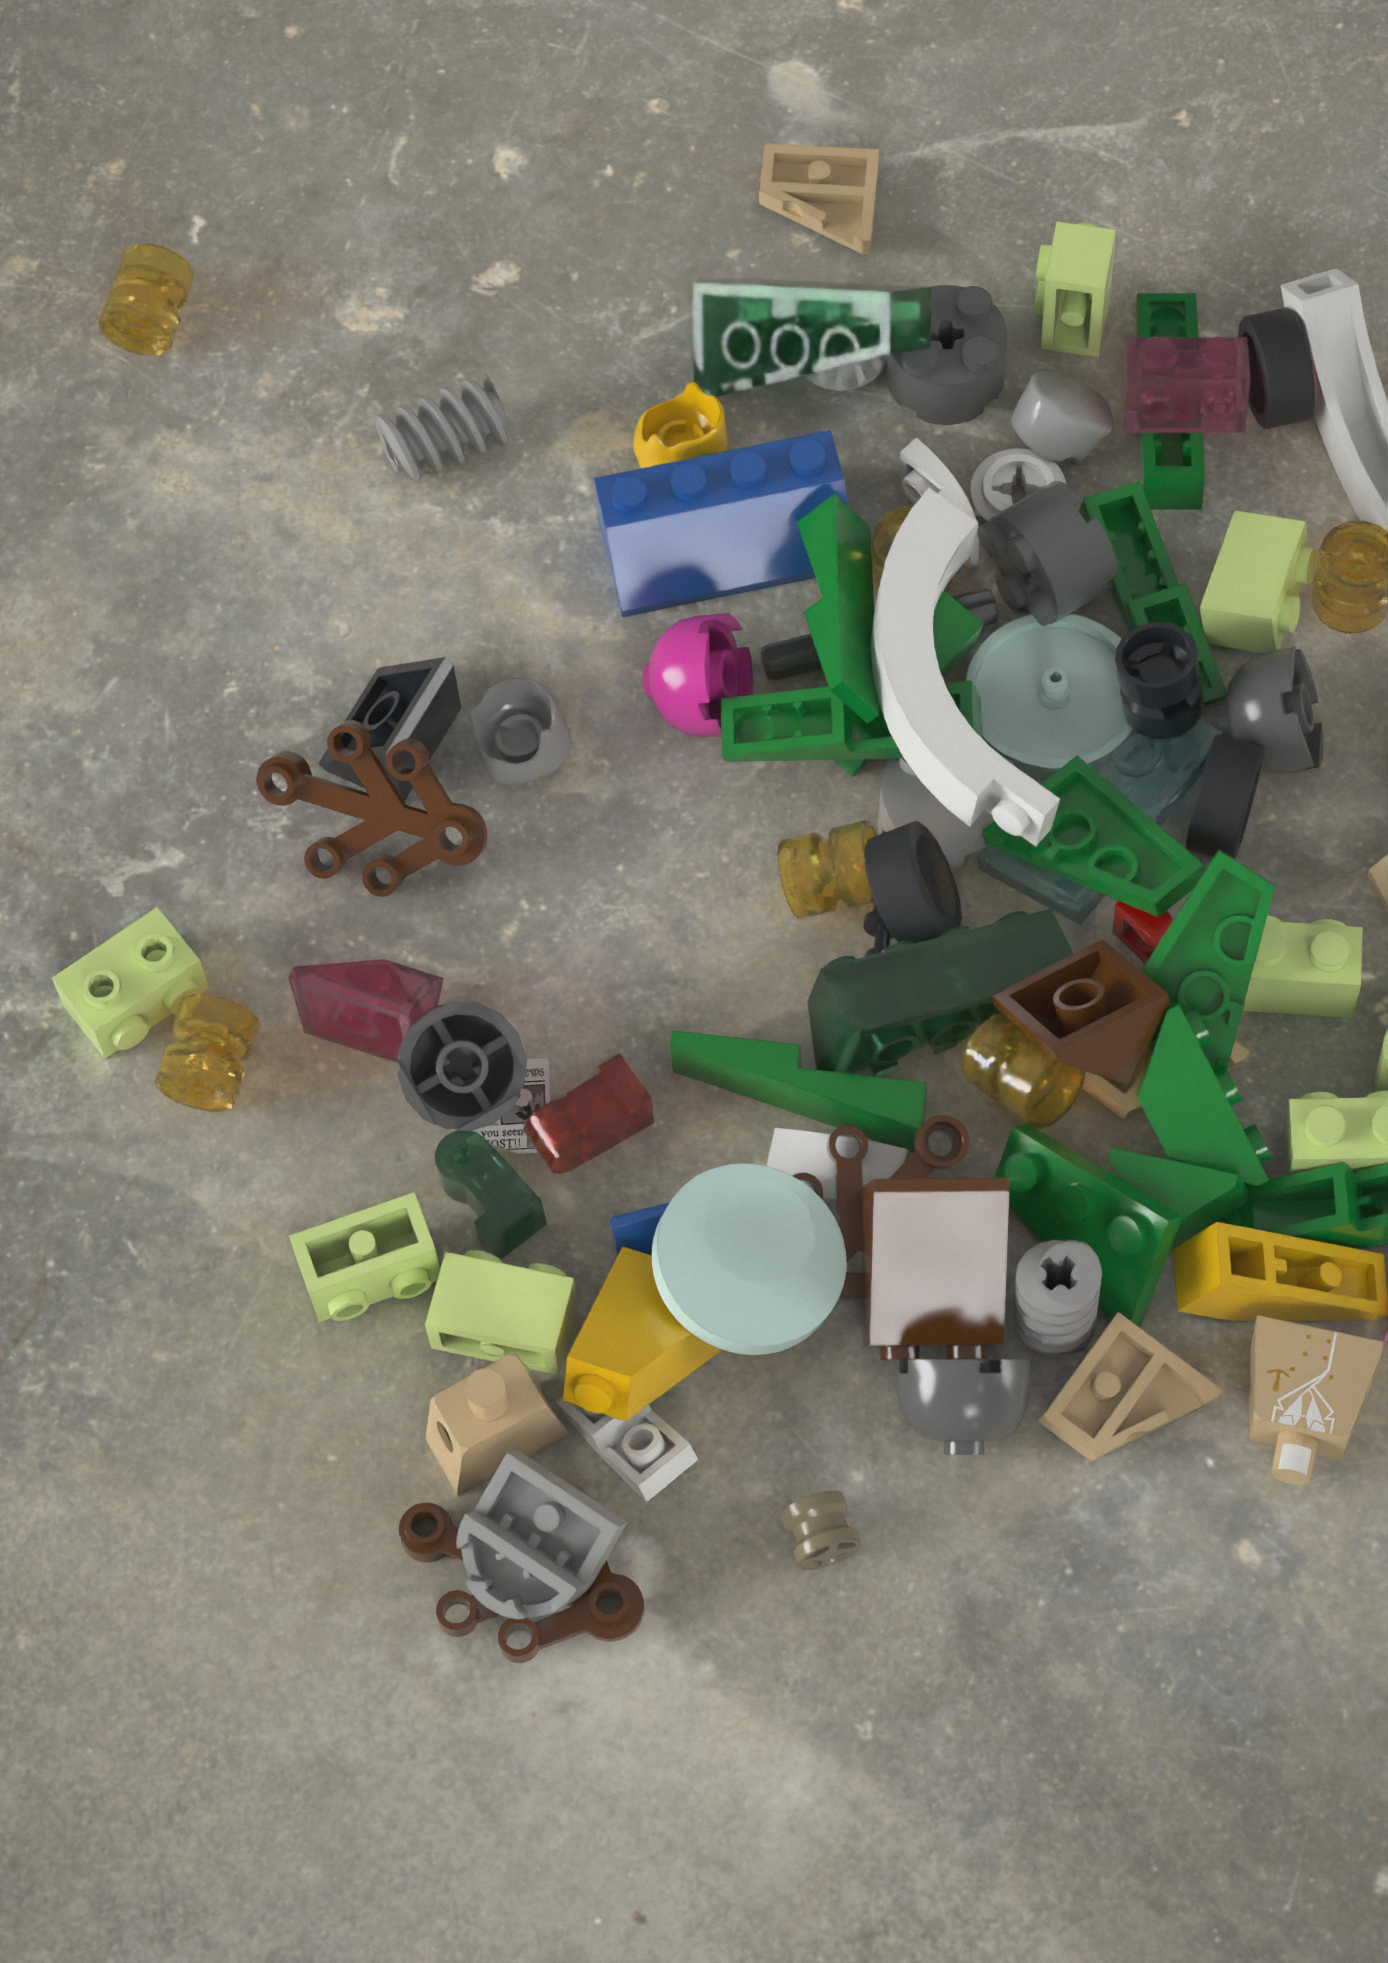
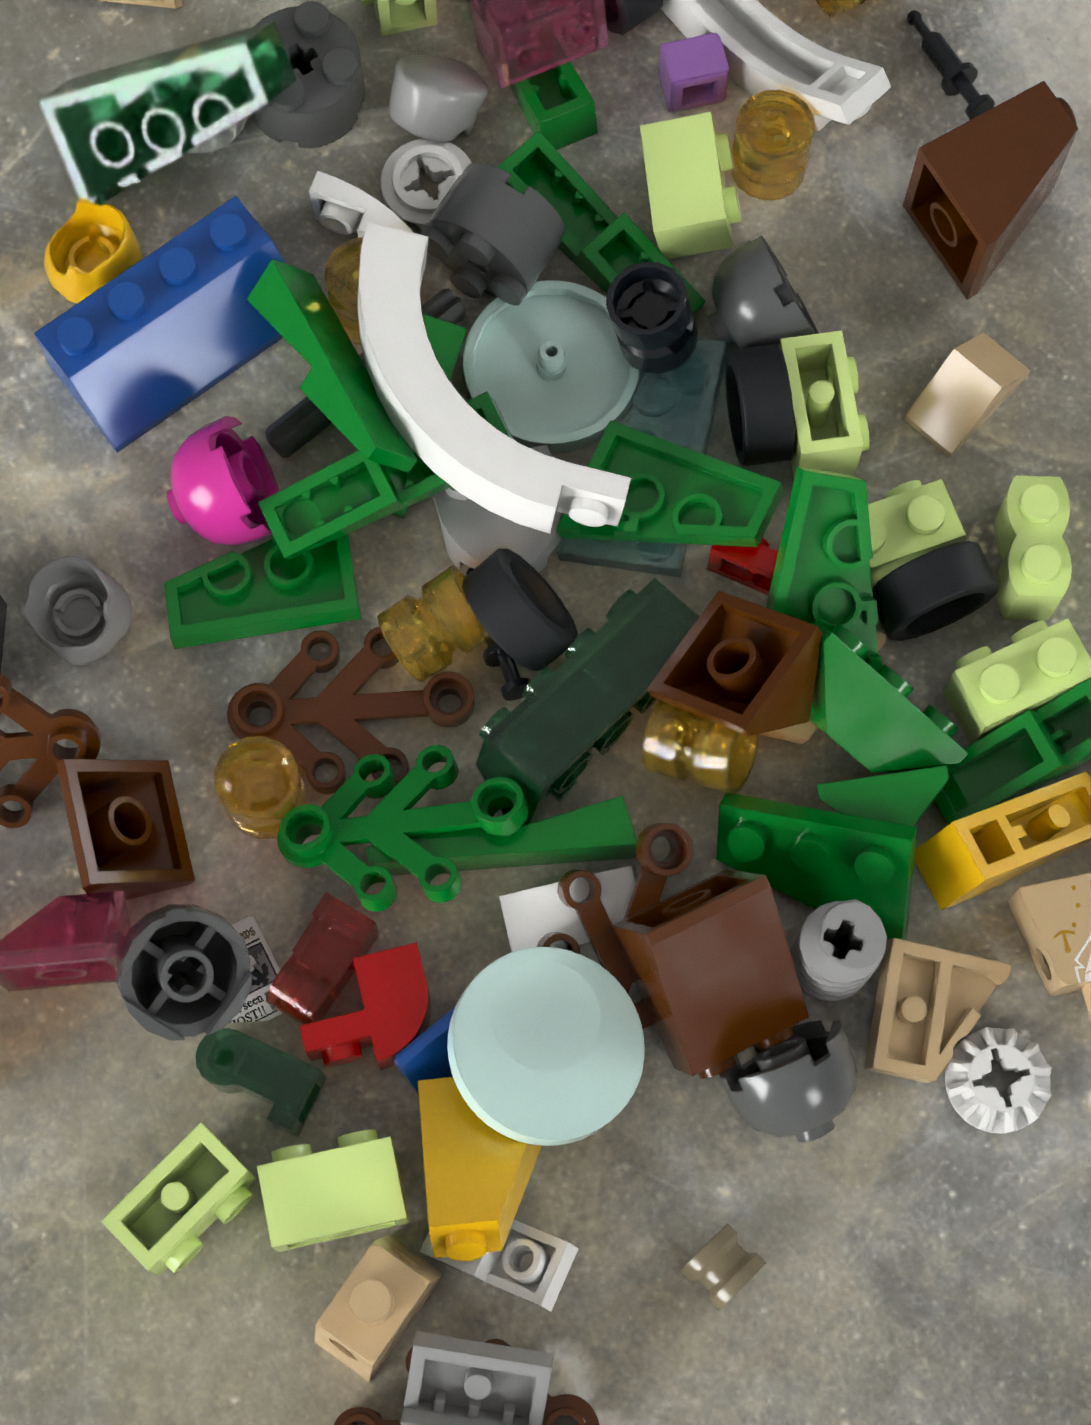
camera: 30 degrees left, 10 degrees up
(472, 929) = (125, 825): none -> reddish brown slope
(606, 945) = (258, 785): none -> clear yellow wheel
(636, 1175) = (393, 1013): none -> red brick
(637, 1004) = (394, 822): none -> green plant
(692, 785) = (262, 594): none -> green wing
(714, 912) = (340, 707): none -> reddish brown plant
(1133, 1501) = (984, 1106): none -> white gear
(1283, 818) = (824, 404): none -> yellowish green brick
(1308, 1026) = (934, 590): none -> black tyre
(1314, 486) = (693, 72): none -> medium lavender slope

